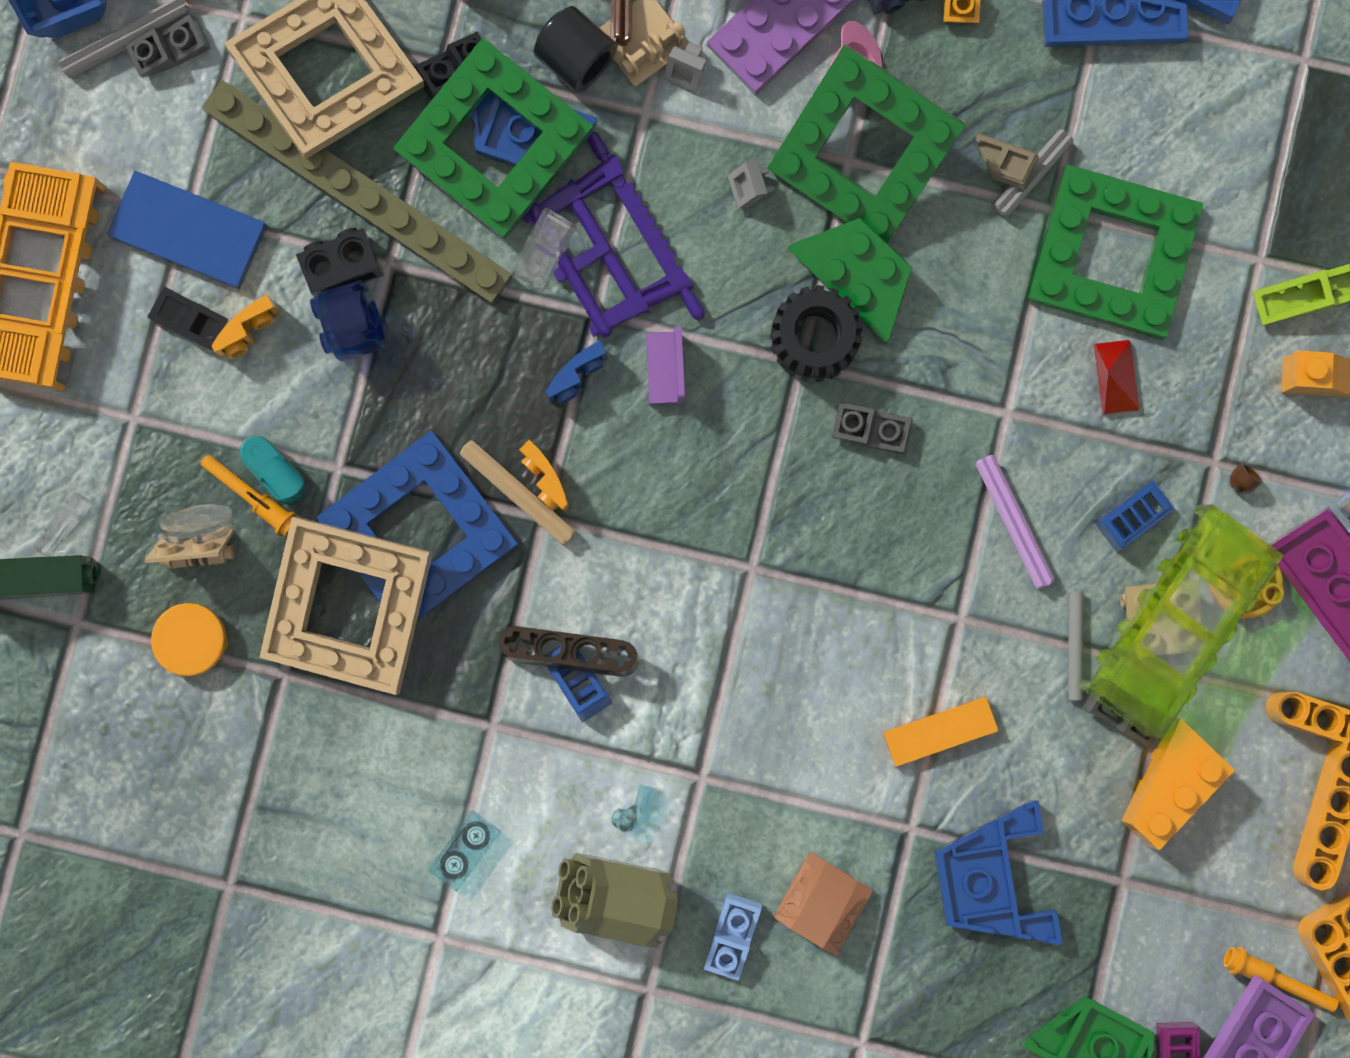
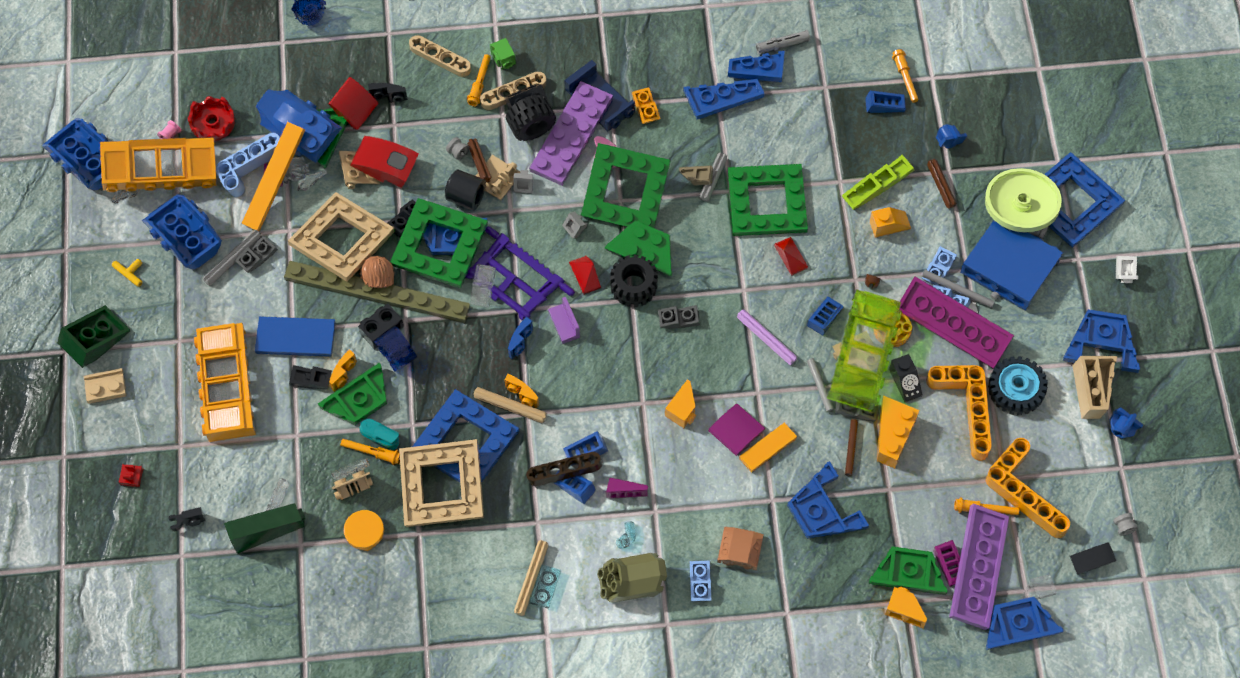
camera: 20 degrees left, 20 degrees down
(260, 386) = (358, 397): none -> green wing
(365, 161) = (377, 272): none -> nougat hair
(445, 827) = (531, 577): none -> tan axle
(651, 621) = (590, 439): none -> blue slope
(655, 722) = (623, 489): none -> magenta slope
(735, 286) = (585, 274): none -> red slope
(818, 605) = (682, 406): none -> light orange slope
(897, 680) = (736, 429): none -> magenta slope
(1086, 783) = (851, 447): none -> reddish brown bar
(1234, 691) = (906, 377): none -> black slope

